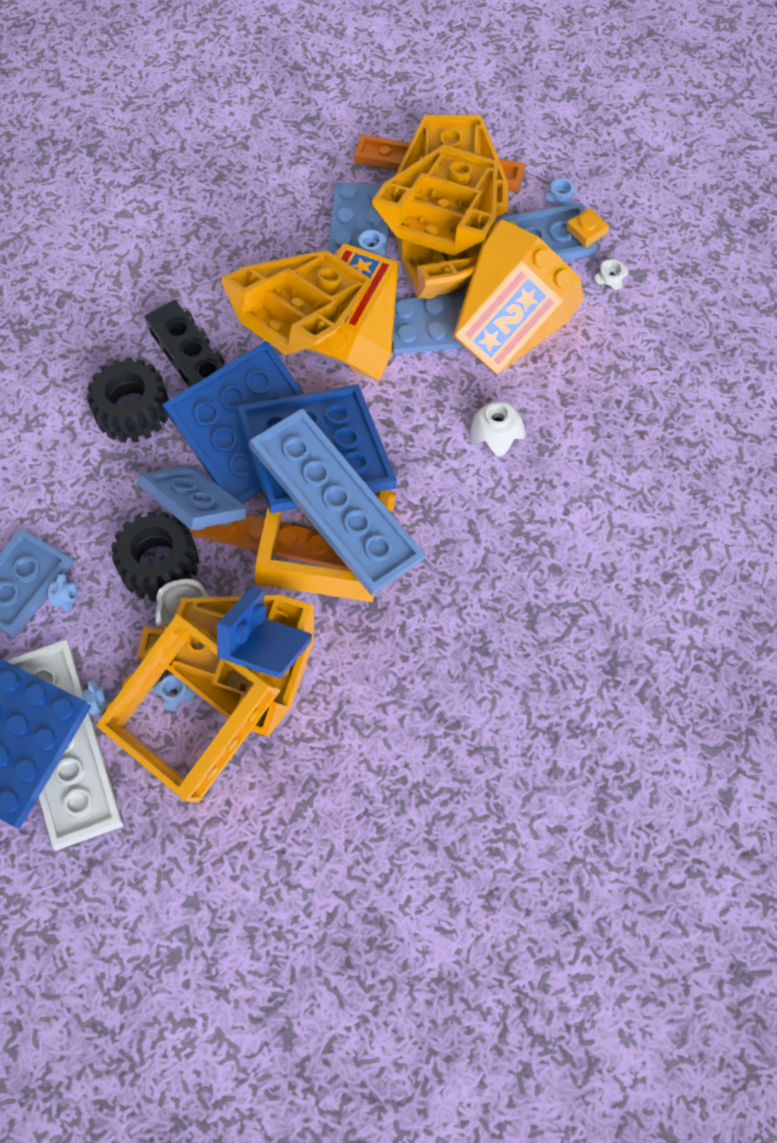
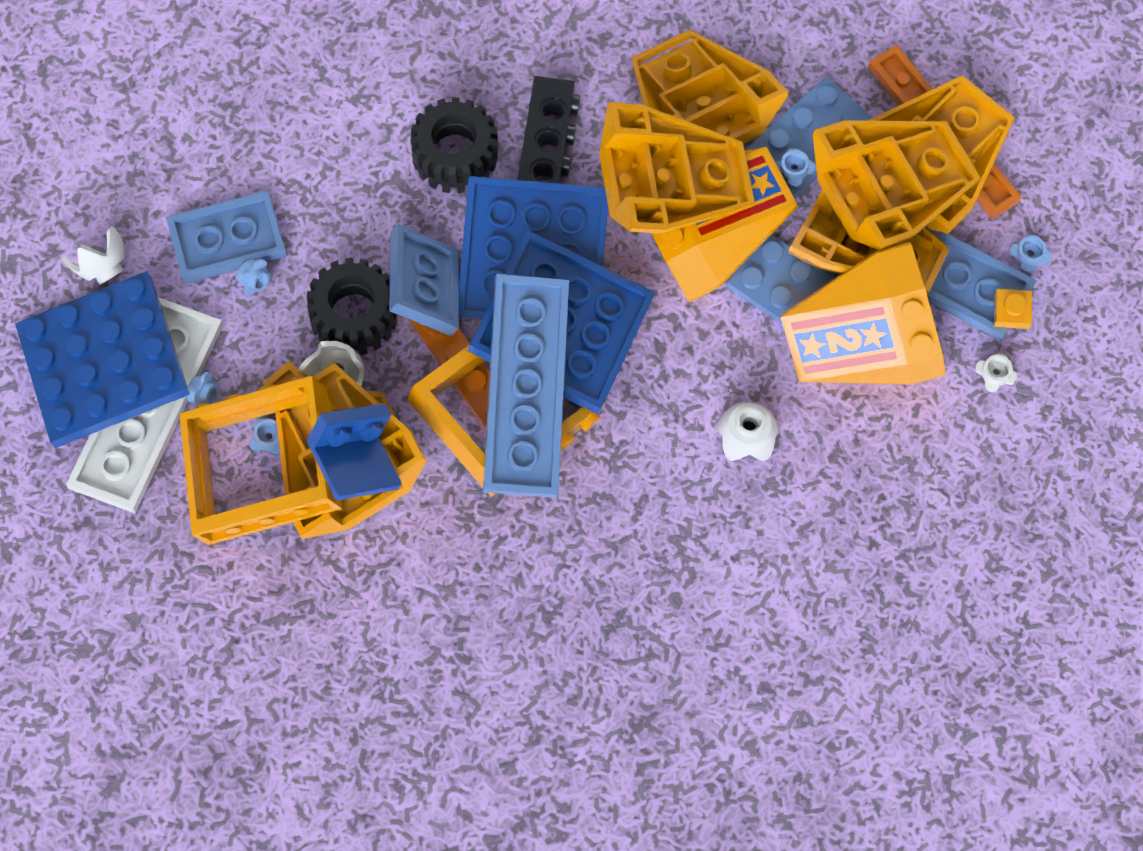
camera: 35 degrees right, 5 degrees up
(267, 236) = (709, 86): none -> light orange wedge

